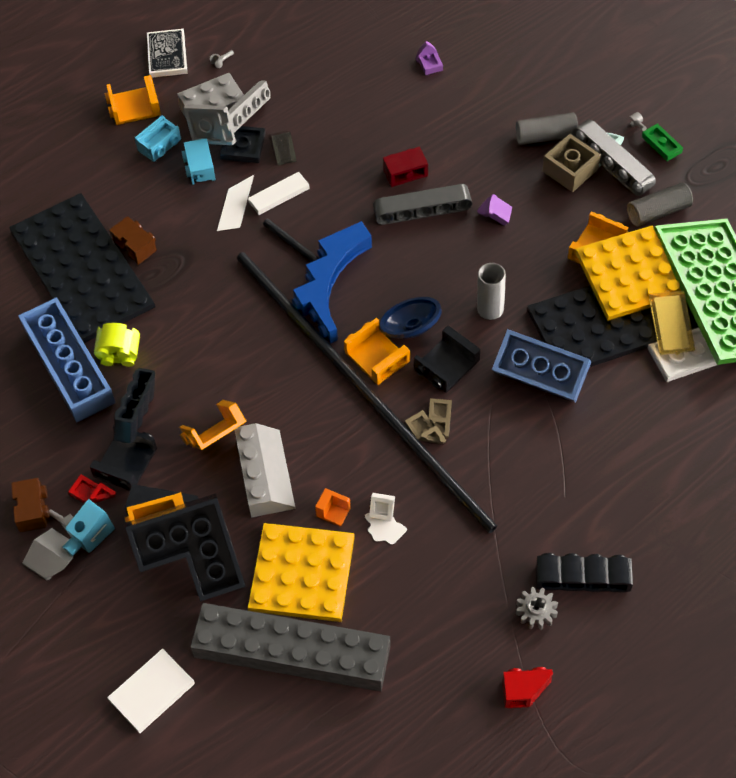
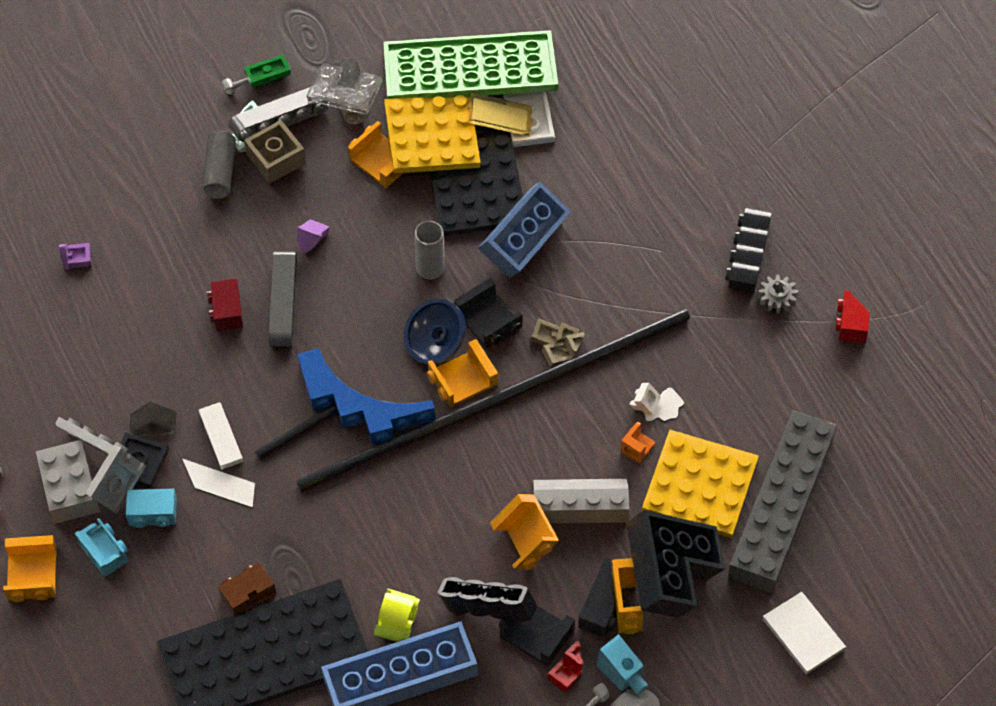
camera: 80 degrees left, 0 degrees up
(641, 191) = (327, 92): none -> clear plate

